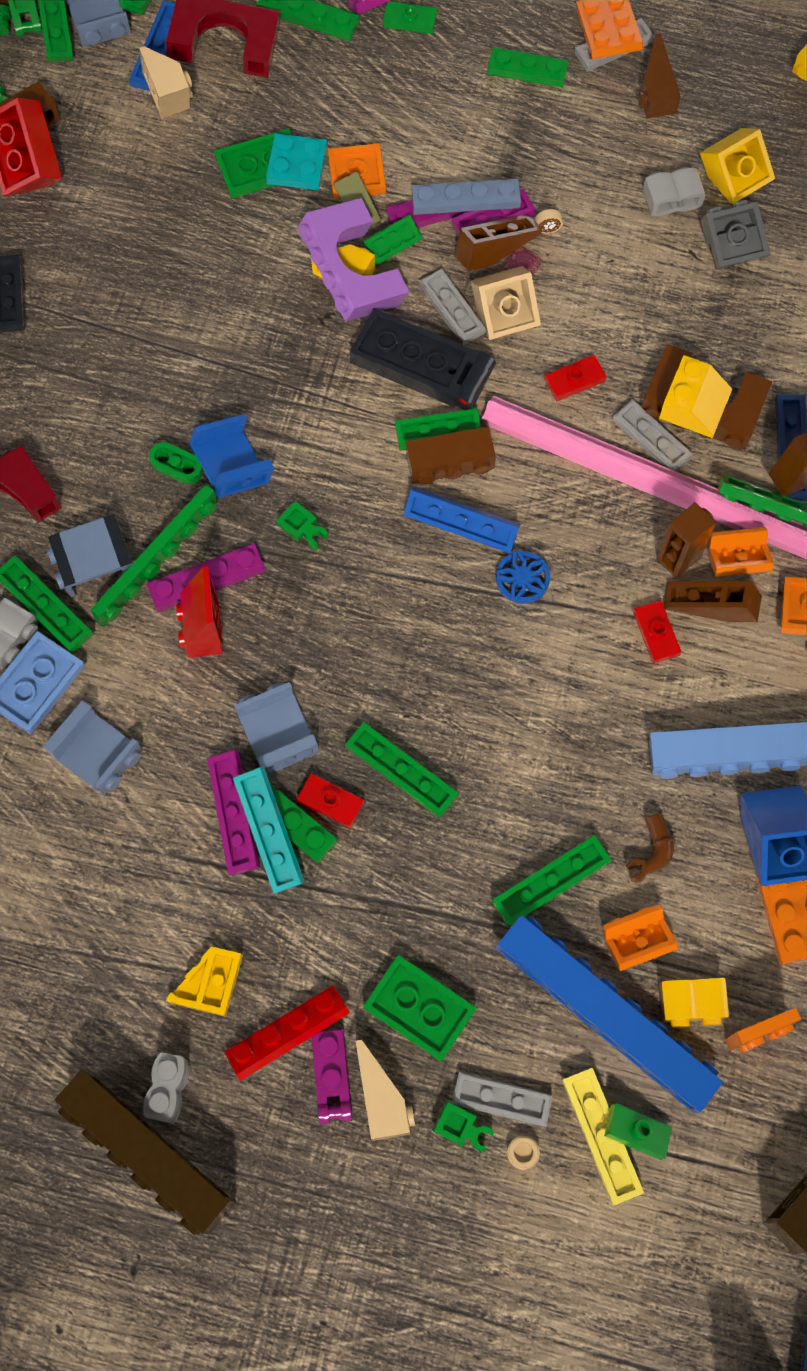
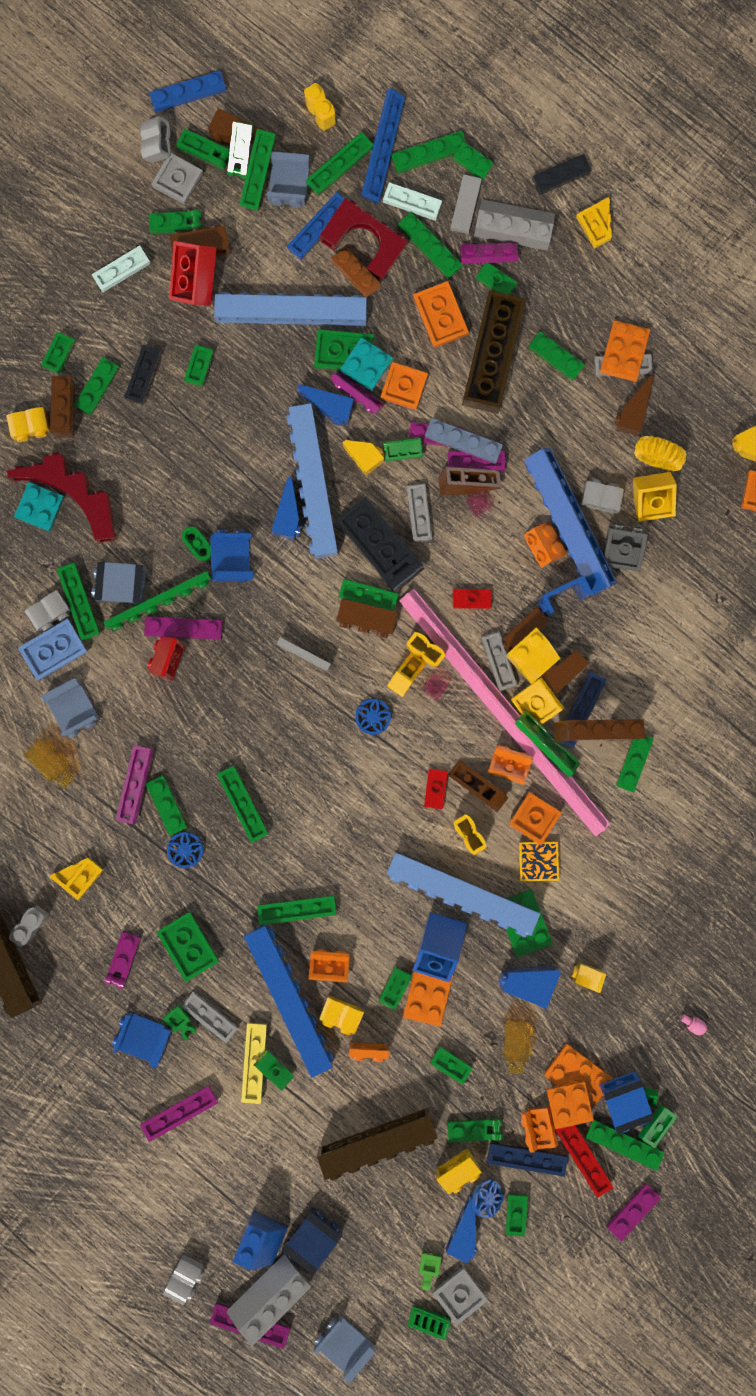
camera: 25 degrees right, 15 degrees up
(78, 254) = (198, 366): none -> green plate
(94, 836) = (49, 762): none -> clear yellow brick
(166, 82) = (305, 267): tan slope -> none
(168, 144) = (290, 309): none -> medium blue brick
(231, 70) = (355, 272): none -> dark orange plate
(267, 228) = (331, 405): none -> blue slope
(268, 830) = (148, 806): teal plate -> none
(276, 728) = (182, 744): sand blue panel -> none
(283, 376) = (287, 517): none -> blue slope
(286, 1032) = (108, 925): red plate -> none
(296, 325) = (313, 481): none -> medium blue brick
(299, 201) = (356, 392): none -> magenta plate
(300, 523) = (254, 619): green plate -> none
(330, 801) = (194, 802): red plate -> none
(349, 872) = (185, 850): none -> blue wheel
(352, 188) = (392, 411): olive tile -> none
(353, 293) = (353, 433): medium lavender arch -> none
(361, 77) = (440, 314): none -> orange plate
(384, 1104) = (143, 990): tan slope -> none
(389, 536) = (303, 654): none -> light grey tile
(416, 1181) = (142, 1038): none -> blue panel
(450, 87) = (493, 352): none -> dark brown brick
(461, 519) = (353, 663): blue plate -> none
(506, 302) = (453, 527): tan slope -> none
(523, 1152) = (207, 1050): tan tile -> none
(527, 1272) = (179, 1113): none -> magenta plate
(540, 503) = (406, 674): none -> yellow slope
(549, 220) = (510, 481): tile -> none
(550, 458) = (421, 647): none -> yellow brick
(586, 503) = (435, 688): none -> clear pink plate
(632, 274) = (545, 544): none -> orange bracket
(652, 232) = (570, 520): none -> brick
(662, 846) = (369, 922): reddish brown piece -> none
(686, 539) = (477, 746): reddish brown brick -> none
(705, 299) = (580, 586): none -> blue panel
(718, 109) = (660, 453): none -> yellow gear
(732, 455) = (538, 701): none -> yellow tile
(742, 667) = (472, 839): none -> yellow brick
(748, 926) = (395, 988): none -> green plate

